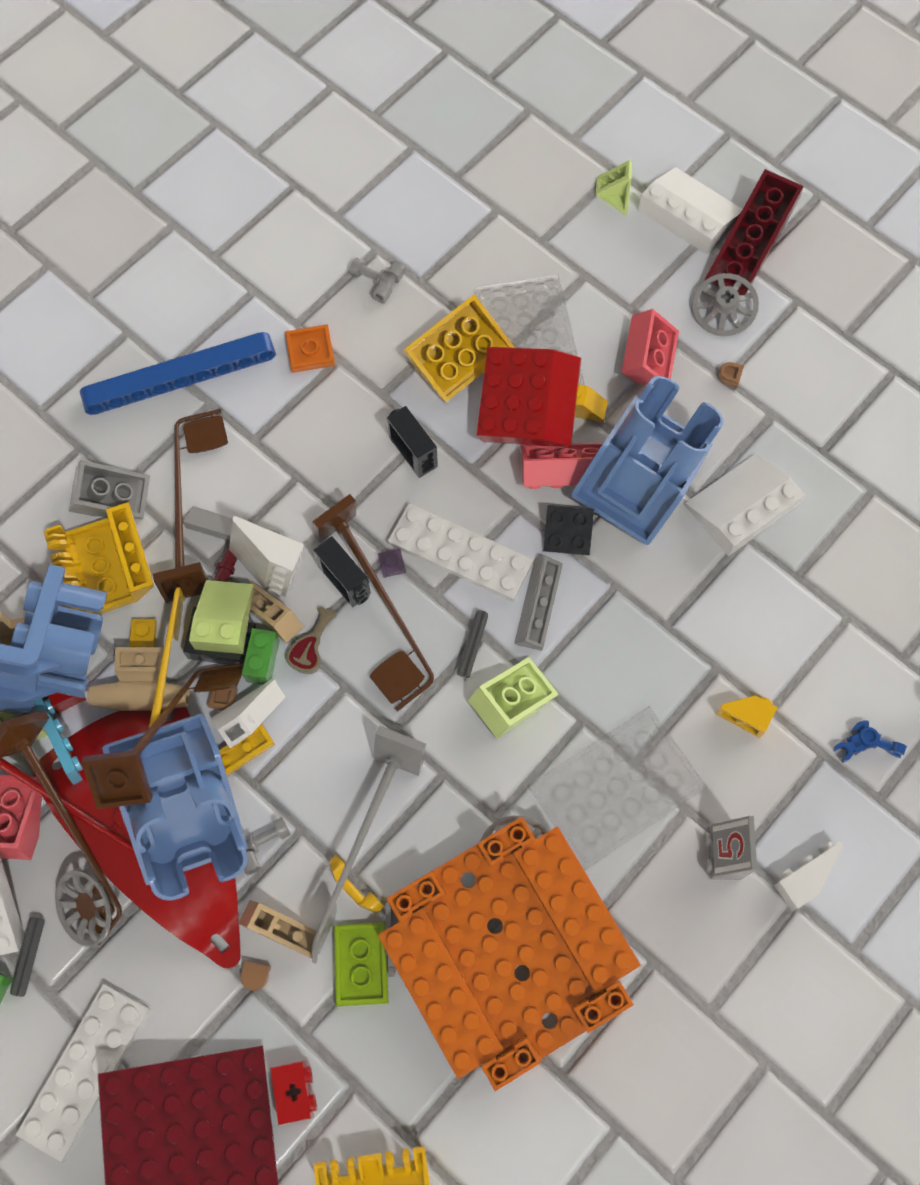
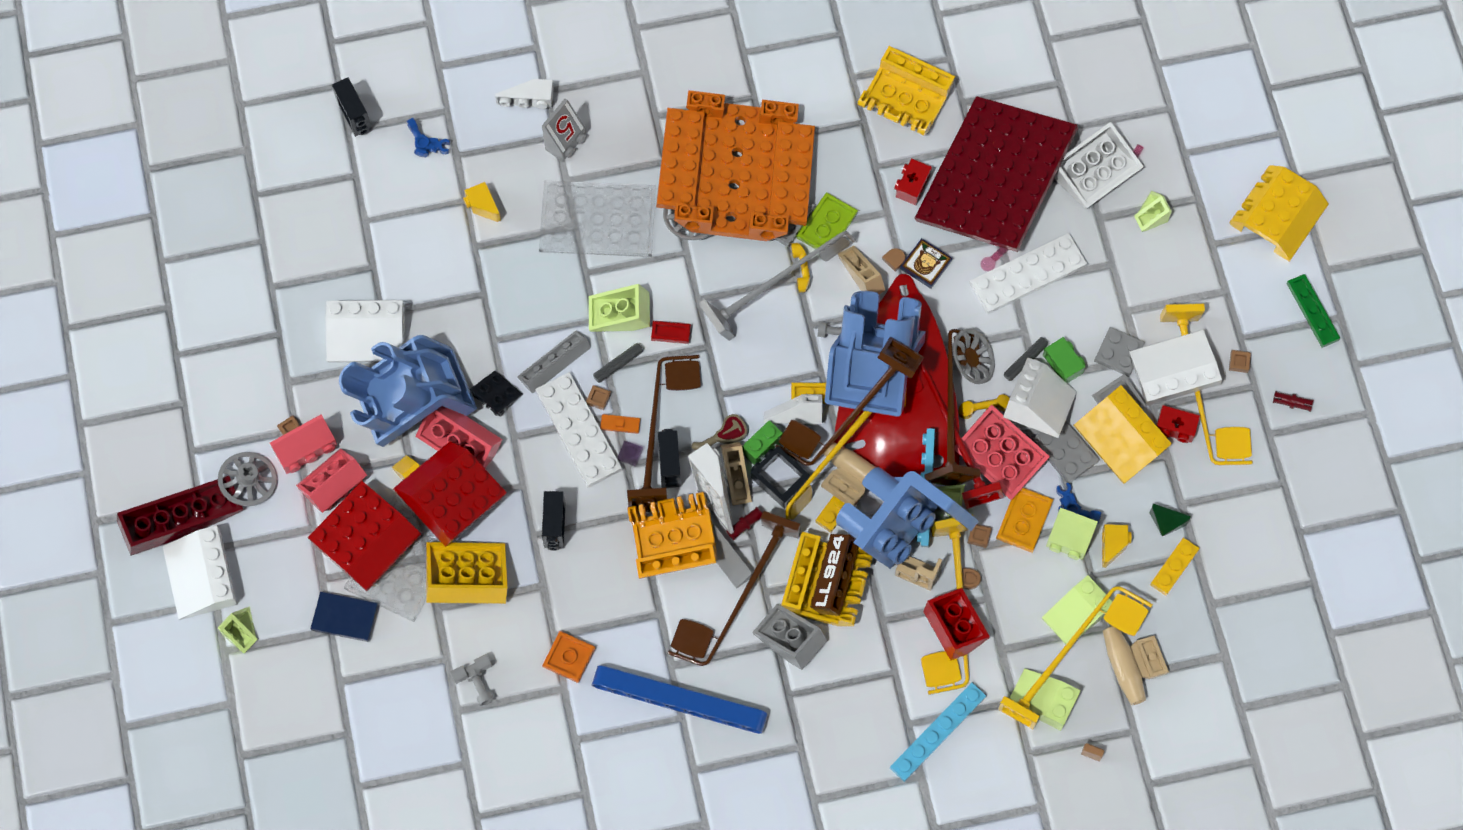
camera: 145 degrees left, 0 degrees up
(26, 883) = (967, 408): none -> yellow bar
(91, 559) = (834, 575): none -> reddish brown brick
(140, 1051) = (988, 263): none -> clear pink bar
(214, 996) = (926, 263): none -> tile
(222, 617) = (769, 476): yellowish green slope -> none
(280, 493) = (673, 536): none -> light orange slope
(424, 586) = (620, 424): none -> orange piece
(443, 714) = (670, 332): none -> red tile
(465, 596) = (598, 397): none -> medium nougat tile
(537, 254) = (344, 616): none -> dark blue tile
(576, 314) = (364, 535): none -> red slope
(700, 358) = (304, 444): none -> coral slope

